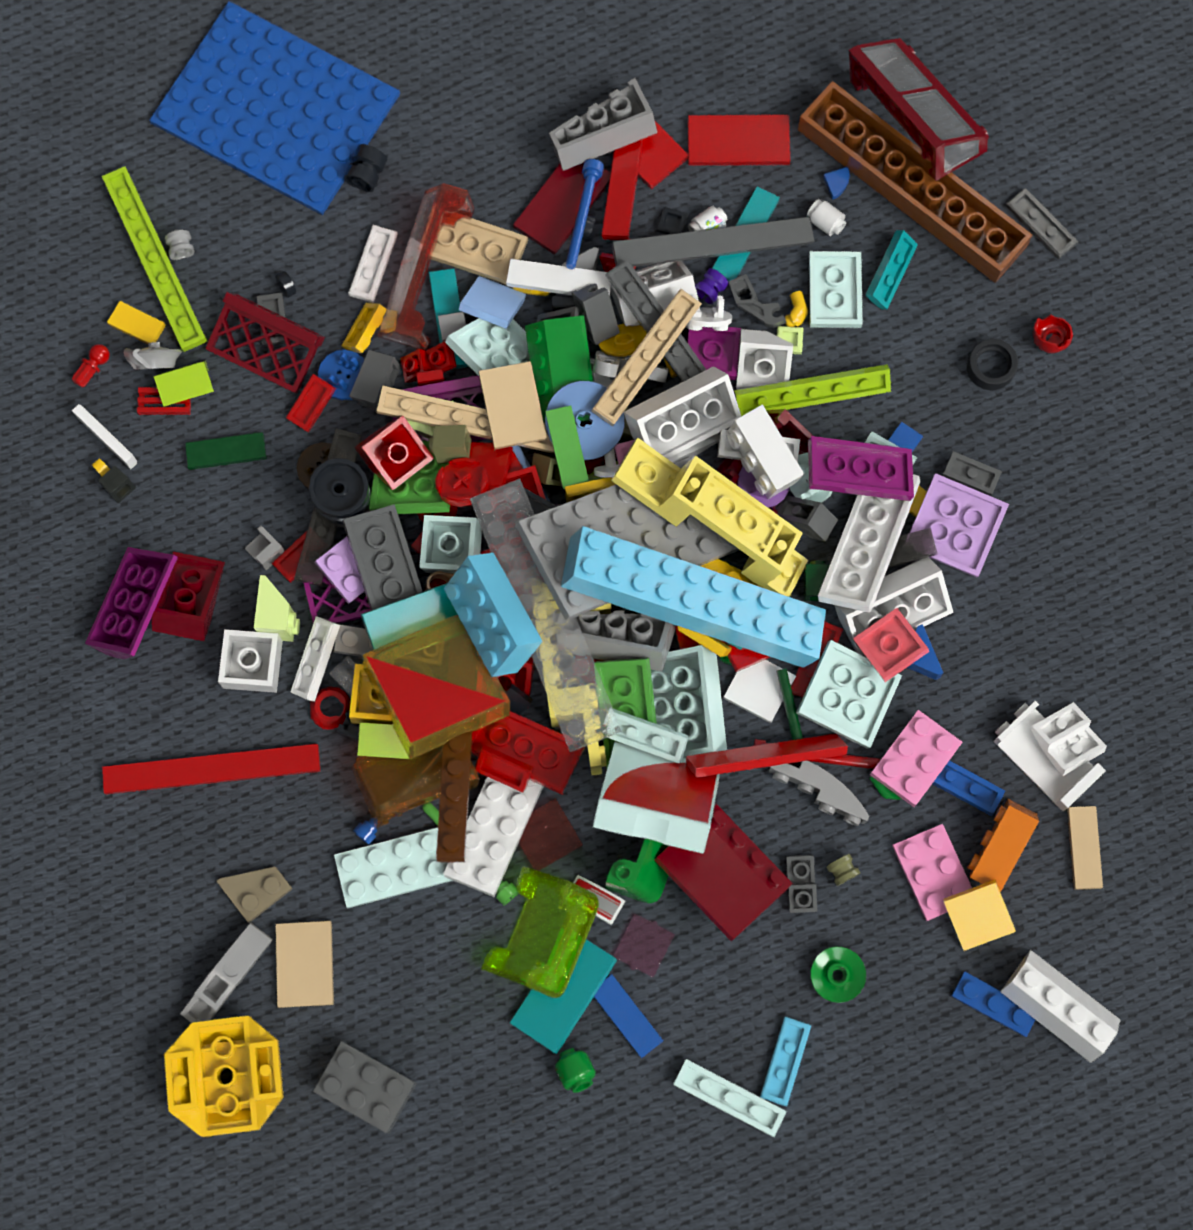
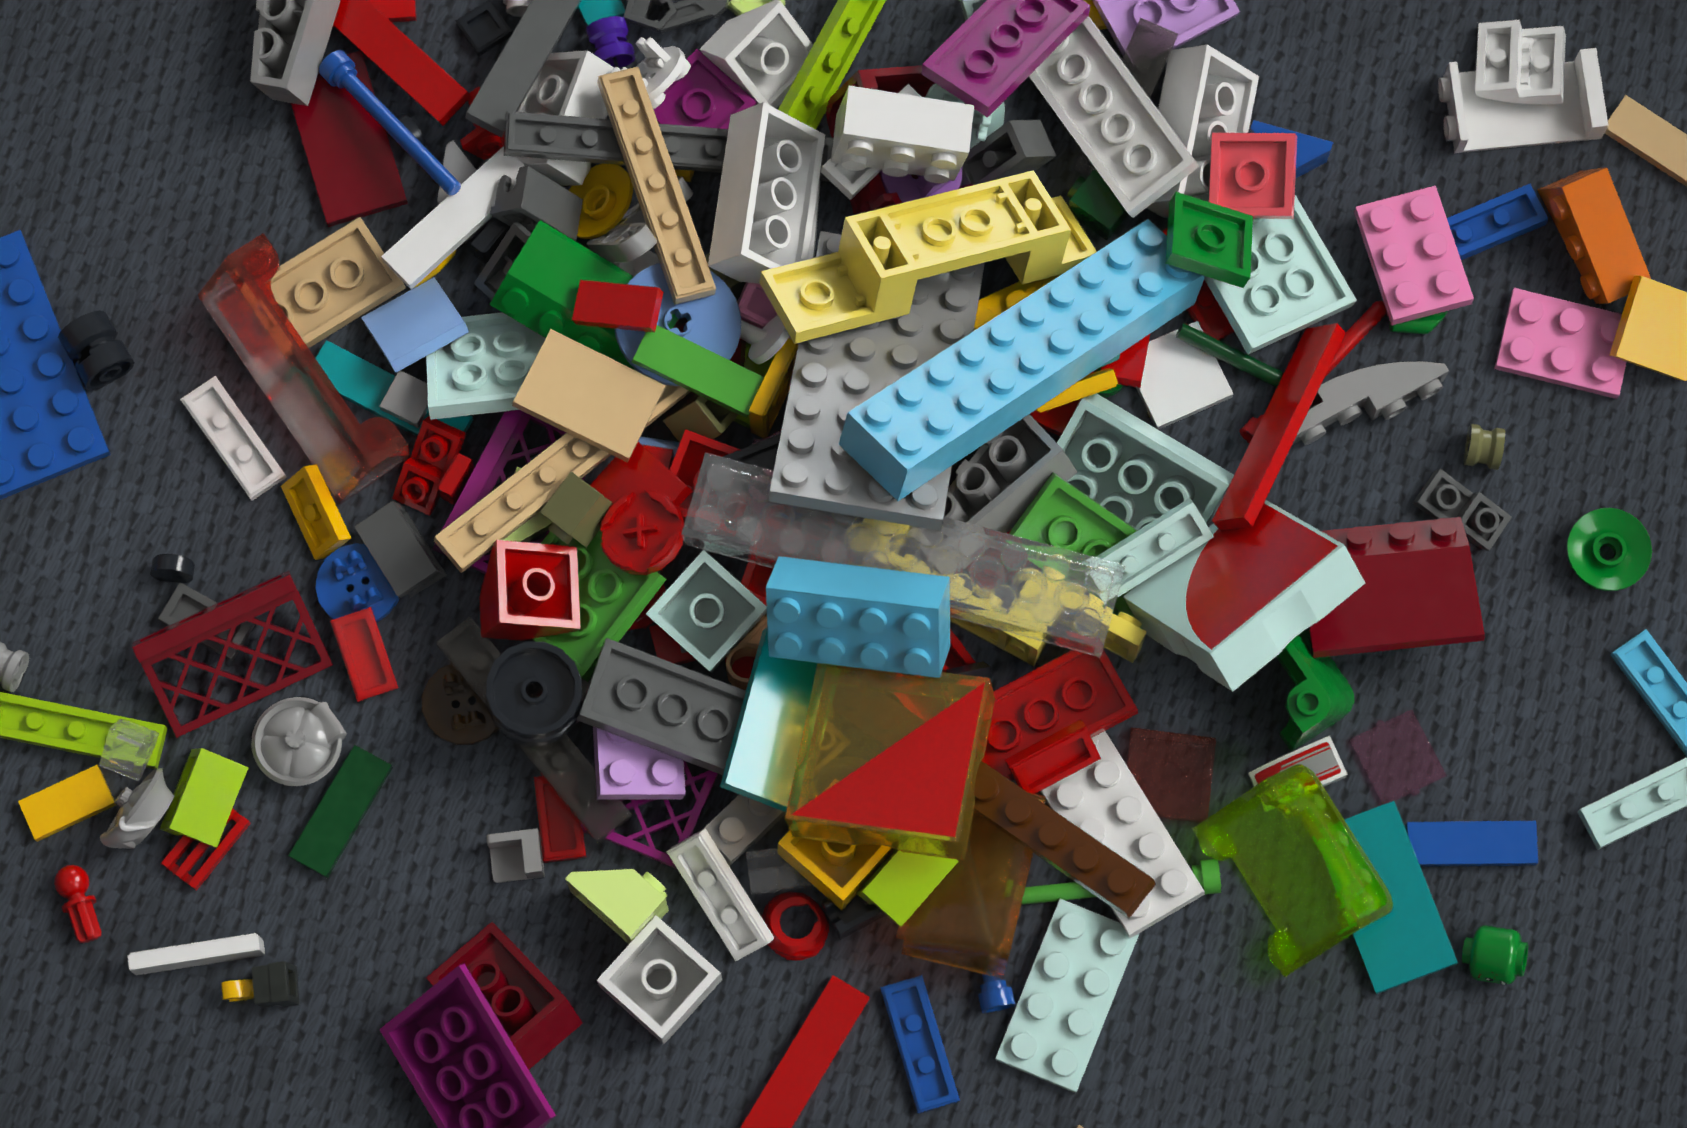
camera: 55 degrees left, 0 degrees up
(180, 329) = (128, 749): none -> clear slope
(243, 404) = (297, 741): none -> light grey piece
(314, 812) = (920, 1044): none -> blue tile
(566, 383) = (617, 306): none -> red tile
(835, 646) = (1209, 239): none -> green plate

